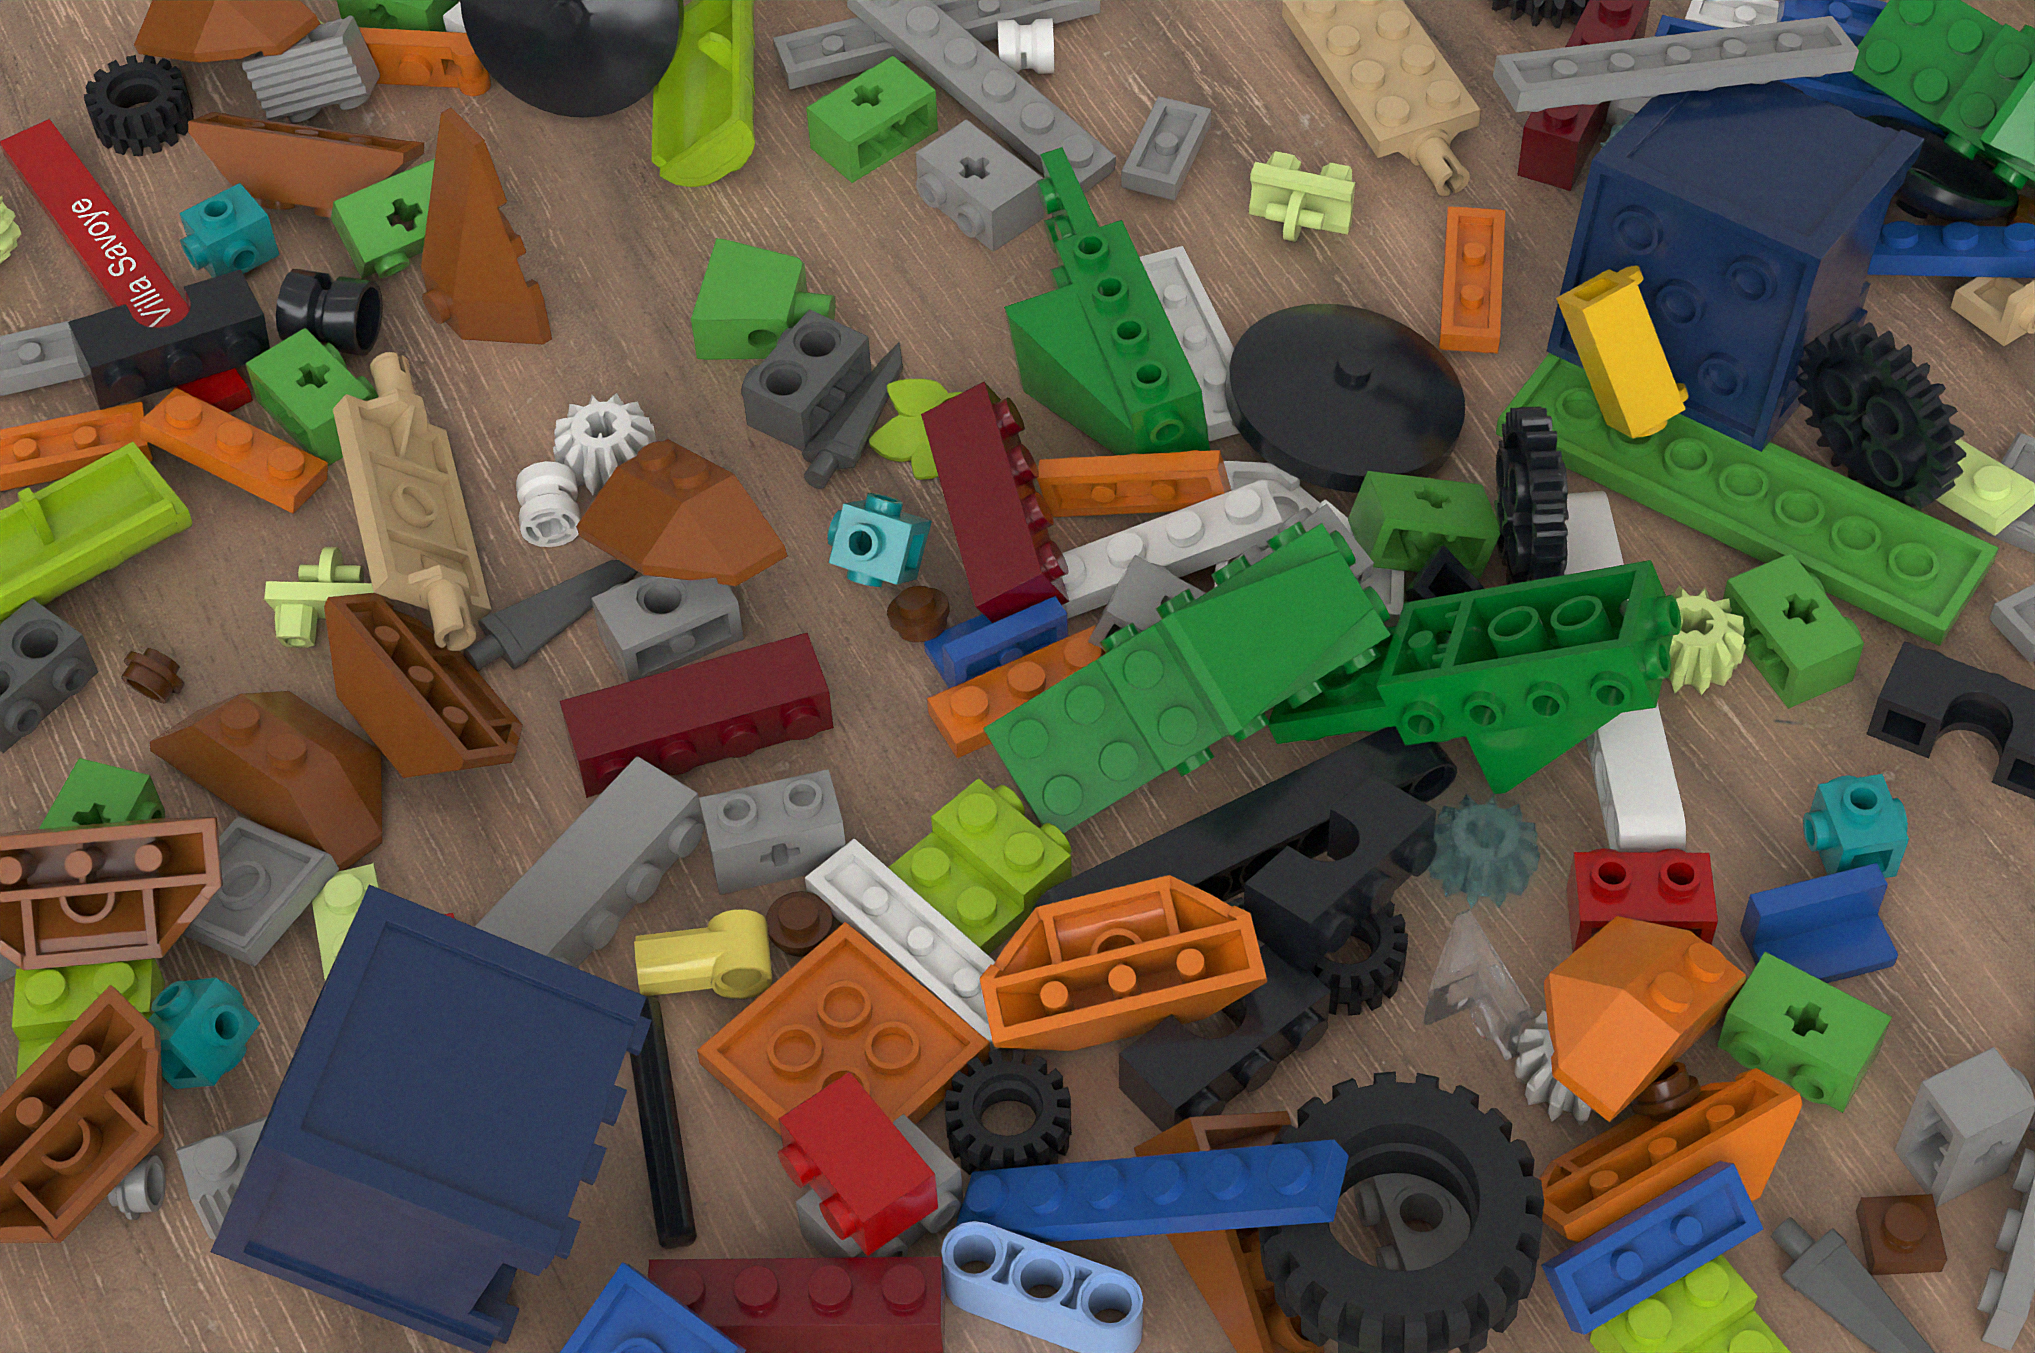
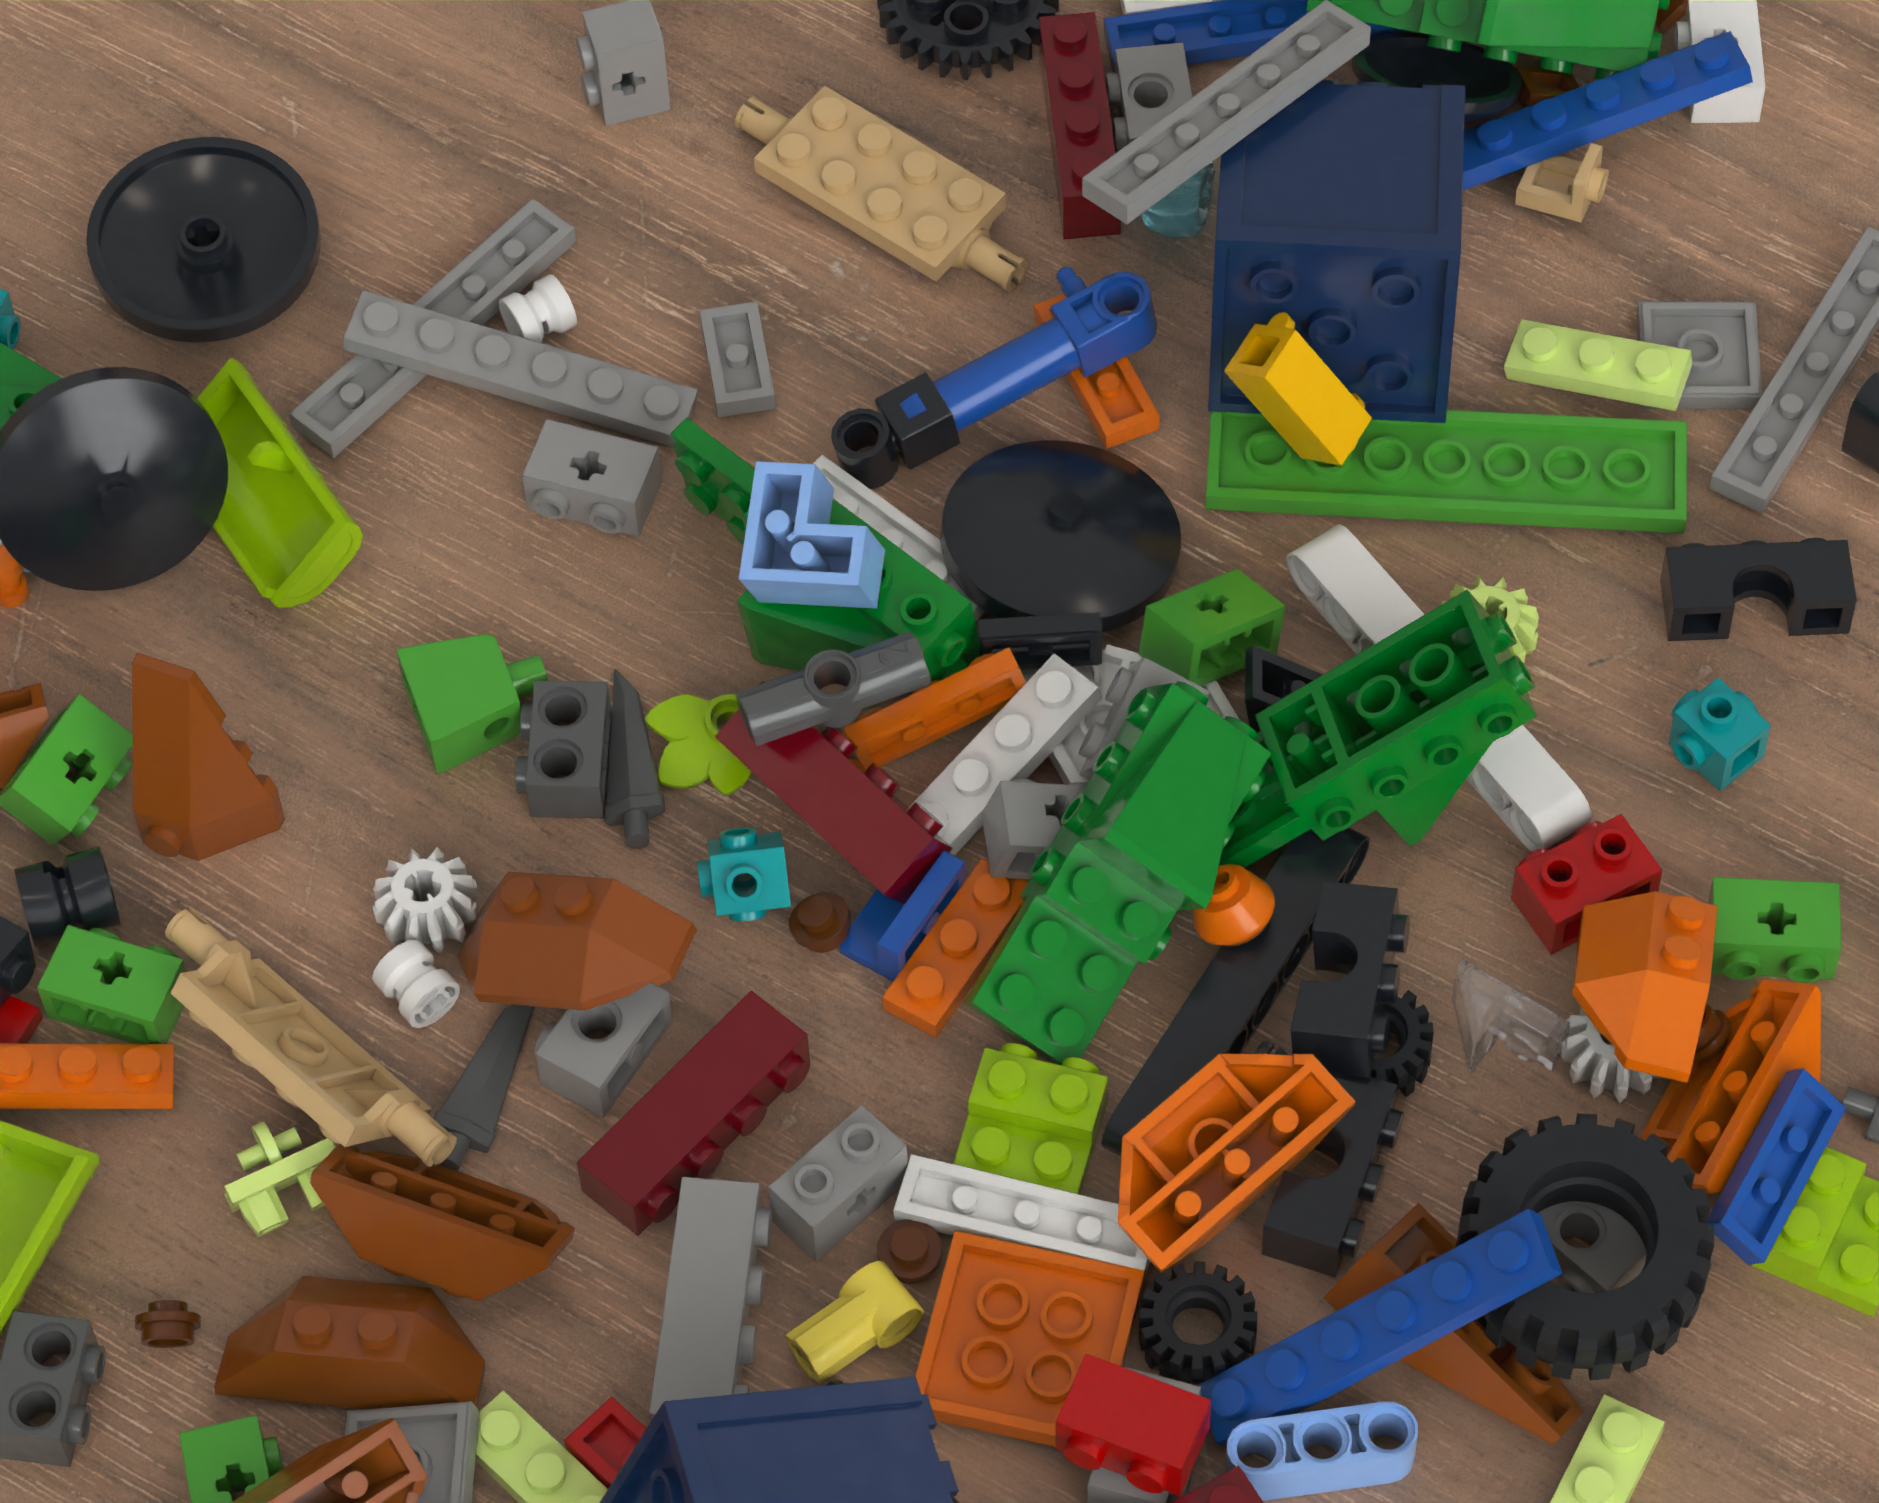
camera: 30 degrees left, 5 degrees up
(872, 118) = (442, 454): bright green brick -> none
(1030, 407) = (869, 678): none -> dark grey piece
(1071, 271) = (794, 550): none -> light blue brick
(1252, 457) = (1036, 638): none -> black tile
(1277, 756) = (1237, 909): none -> orange cone
(1285, 251) = (925, 416): none -> blue piece
(1302, 198) = (894, 356): yellowish green hips -> none
(1484, 850) = (1439, 898): clear light blue gear -> none
(1531, 497) = (1308, 573): black gear -> none
(1794, 630) = (1565, 576): bright green brick -> none
(1823, 924) = (1734, 832): blue panel -> none
(1880, 414) = (1540, 350): black gear -> none

